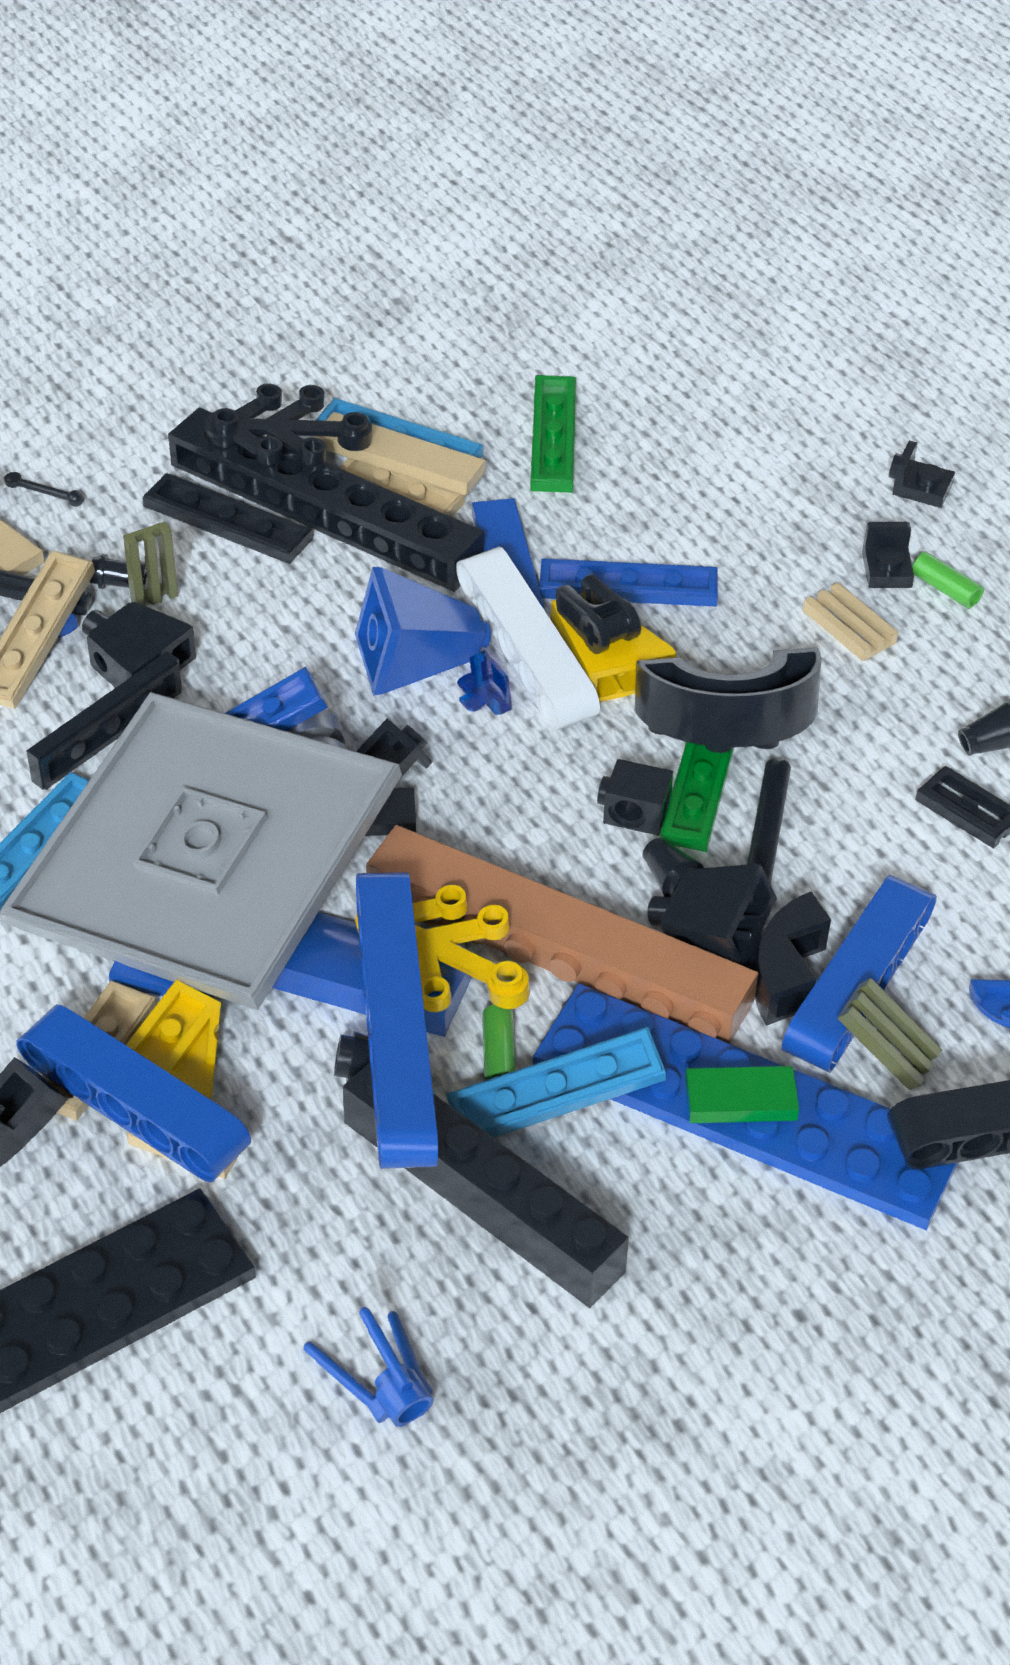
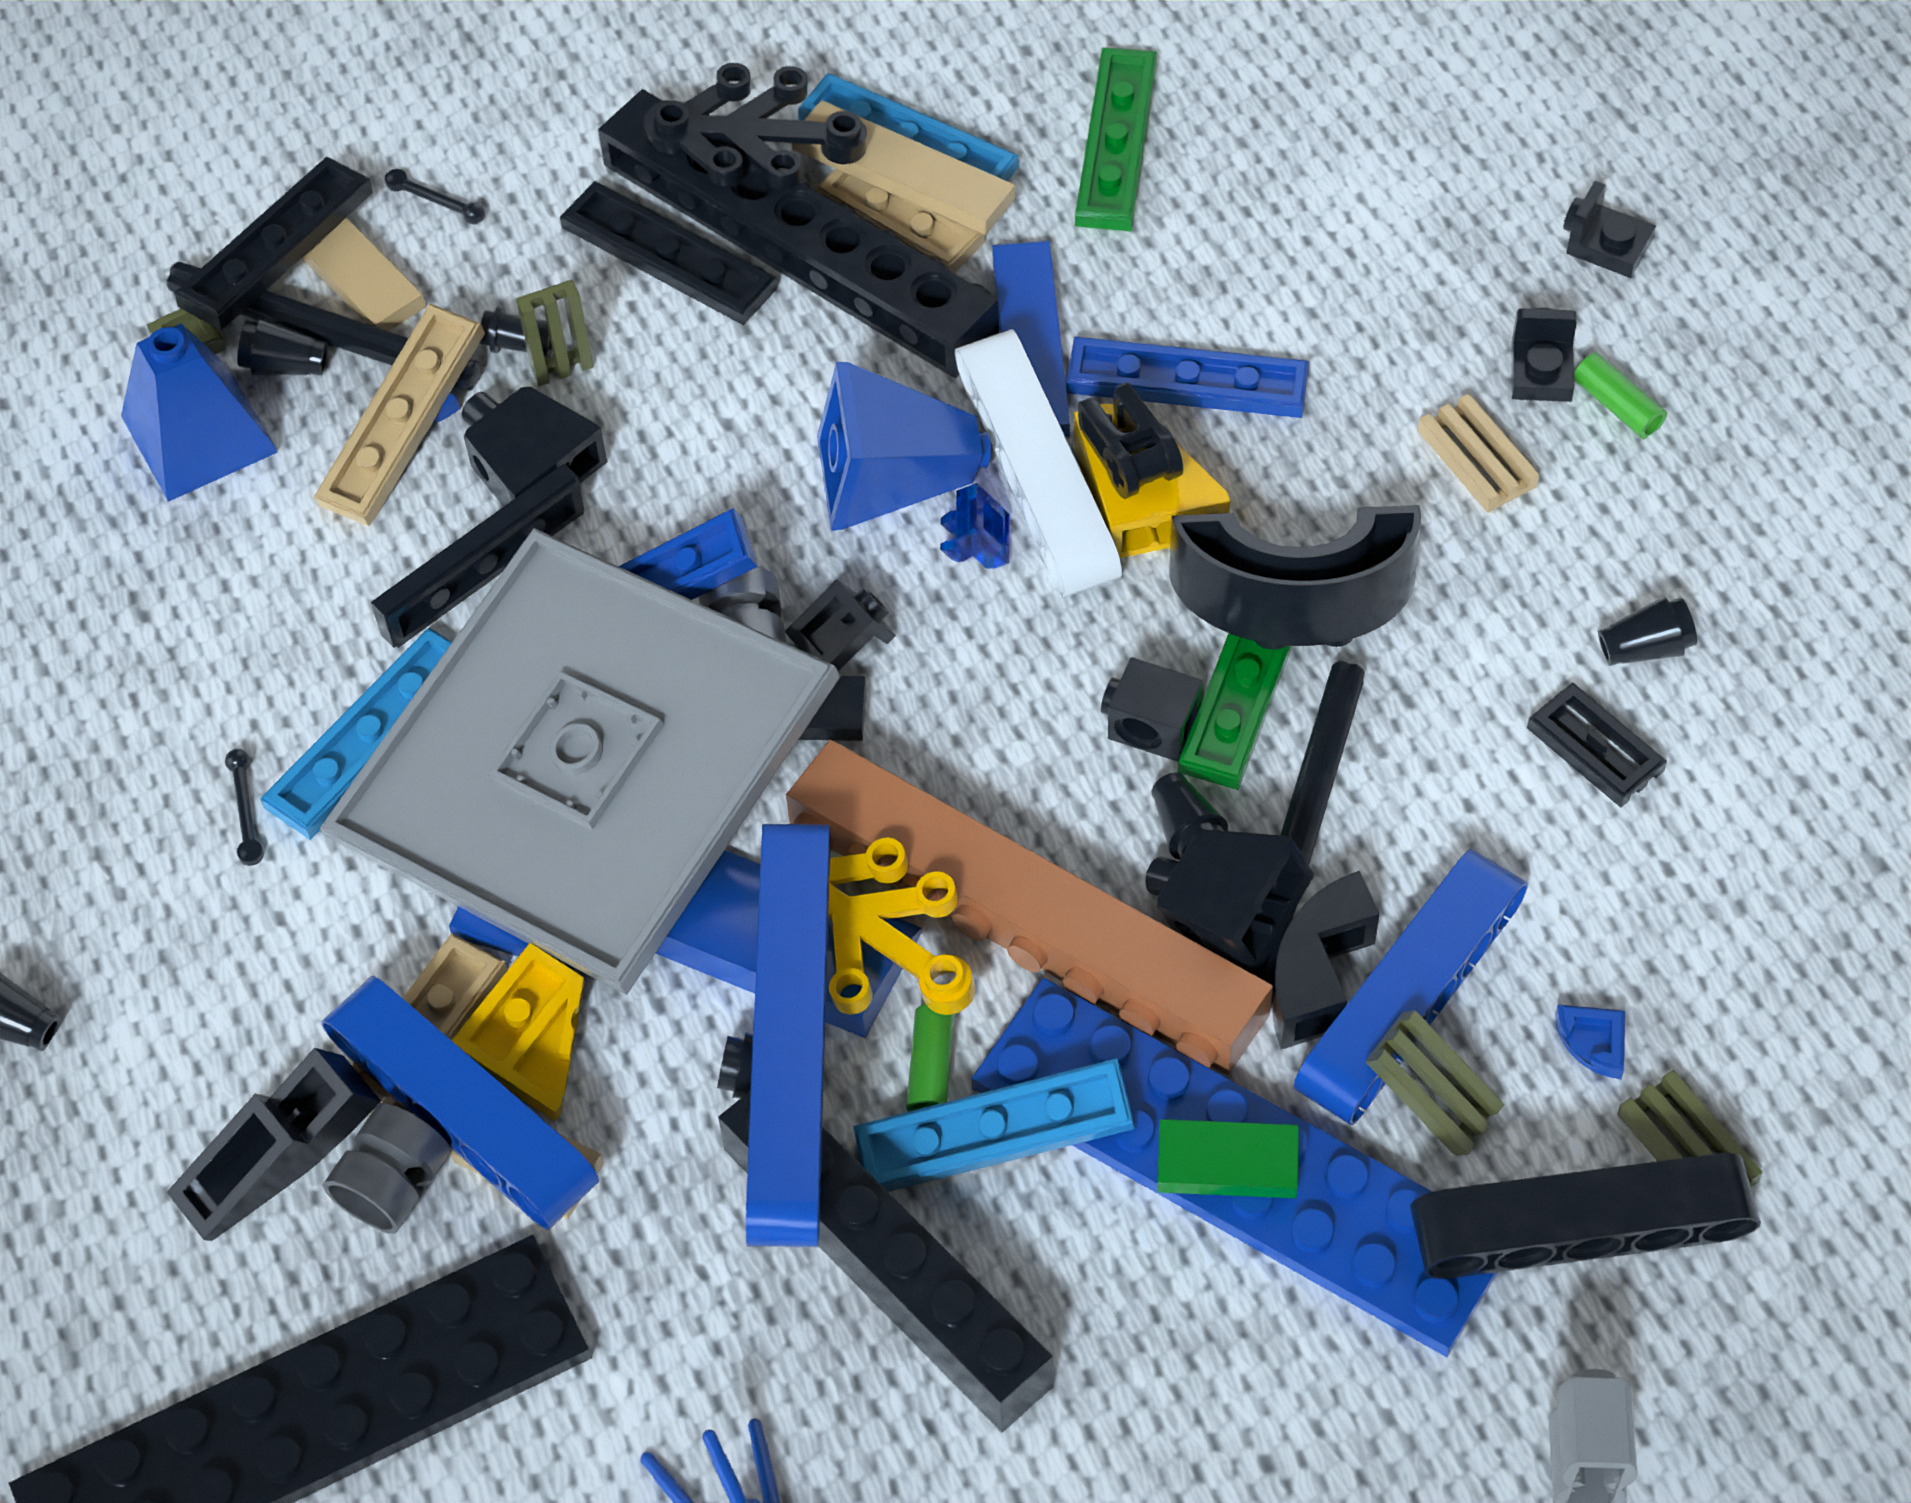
camera: 10 degrees right, 10 degrees up
(77, 1147) = (382, 1175): none -> flat silver wheel

